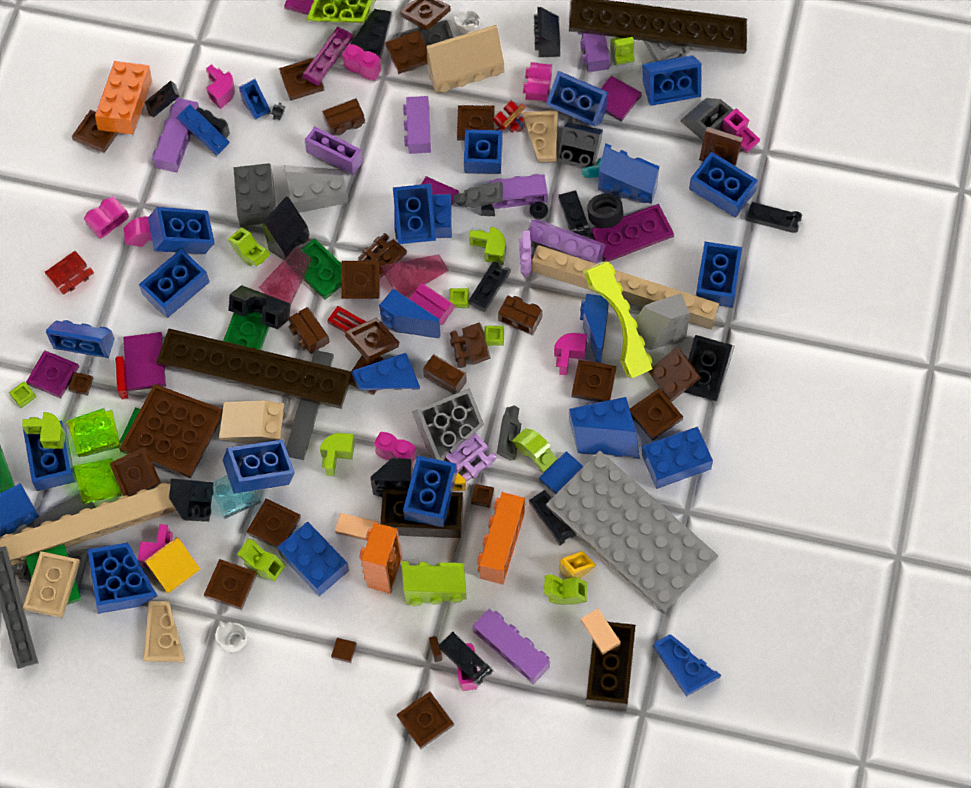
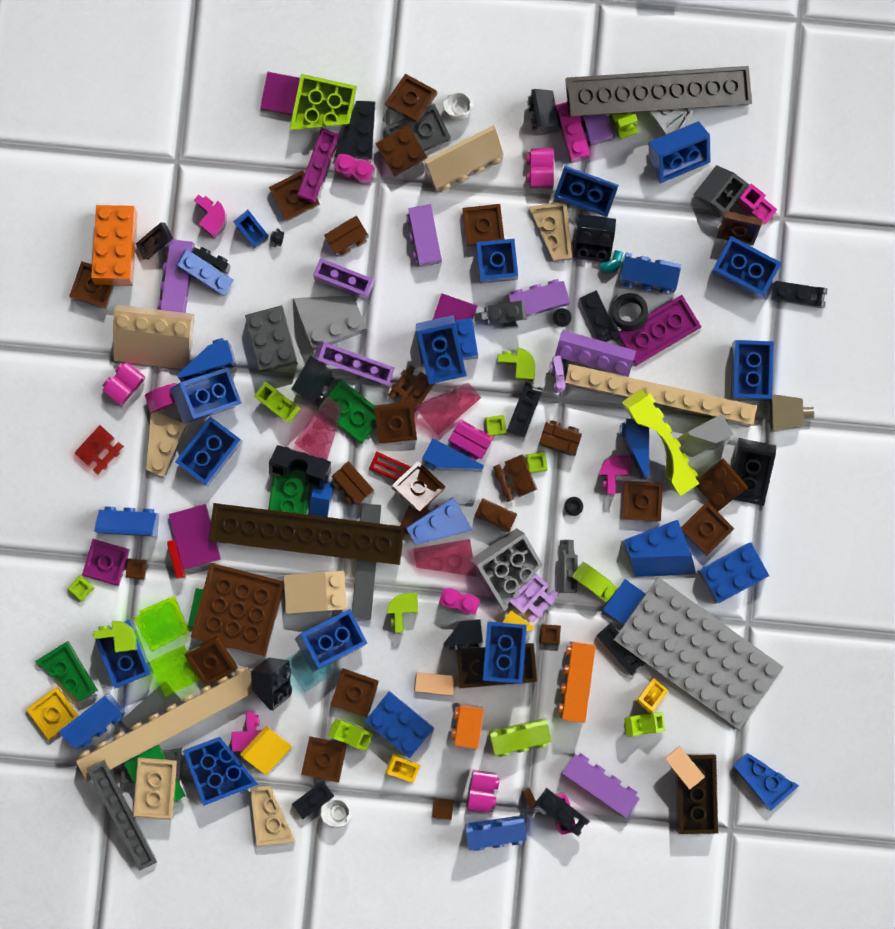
camera: 10 degrees left, 20 degrees up
(133, 270) = (163, 442): none -> tan wing
(141, 177) = (152, 336): none -> tan slope
(196, 197) = (211, 359): none -> blue slope
(209, 622) = (313, 799): none -> black plate
(275, 340) = (321, 500): none -> blue slope
(307, 602) = (402, 768): none -> yellow slope
(330, 219) = (354, 363): none -> medium lavender brick
(387, 636) = (482, 791): none -> dark pink brick
(389, 410) = (446, 557): none -> clear pink wing
(392, 675) = (496, 832): none -> blue wedge
(425, 720) = (530, 867): reddish brown plate -> none
(503, 122) = (521, 217): red hips -> none
(524, 374) = (579, 506): none -> black plate
(572, 53) = (572, 135): none -> dark pink brick
(620, 98) = (626, 173): magenta tile -> none
(750, 318) = (788, 413): none -> dark tan torso

